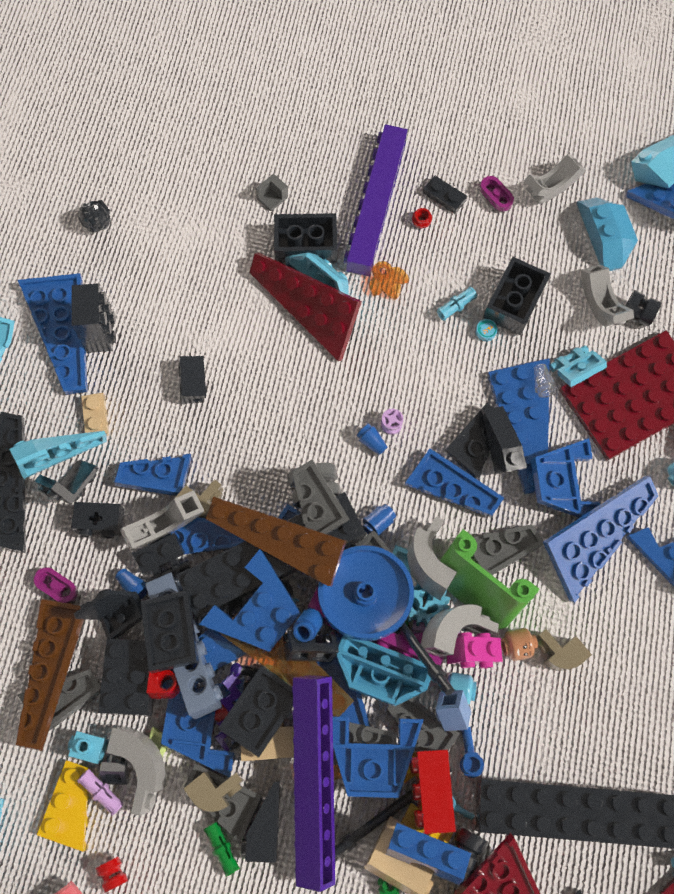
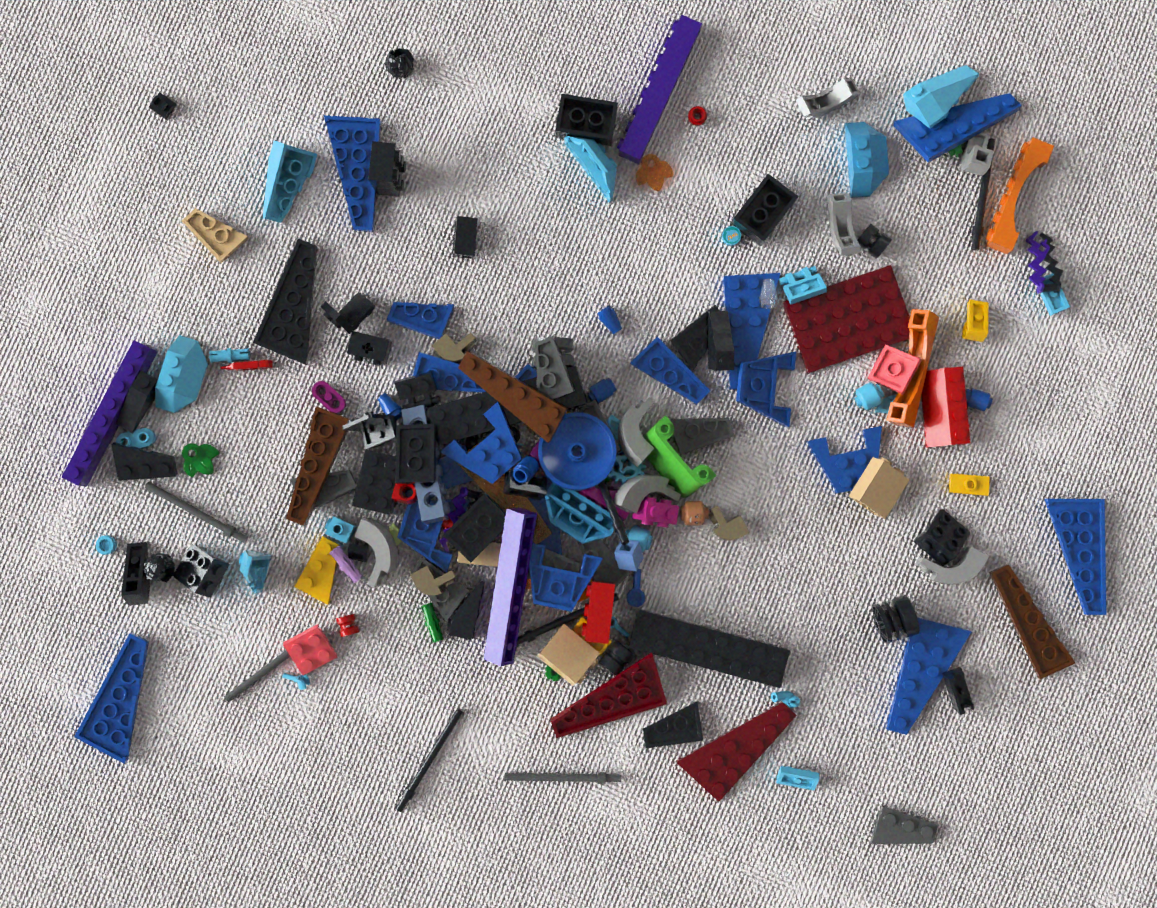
camera: 15 degrees right, 15 degrees up
(44, 453) = (328, 284): medium azure wedge -> none
(95, 413) = (377, 255): tan plate -> none
(164, 522) = (422, 362): light grey arch -> none
(272, 192) = (564, 66): dark grey panel -> none
(316, 306) = (584, 189): dark red wing -> none
(393, 416) = (632, 303): lavender wheel -> none
(415, 847) = (588, 655): blue arch -> none
(445, 194) = (724, 94): black plate -> none
(456, 303) = (710, 206): medium azure pin -> none
(498, 193) = (772, 103): magenta plate -> none
(594, 537) = (777, 438): wing -> none

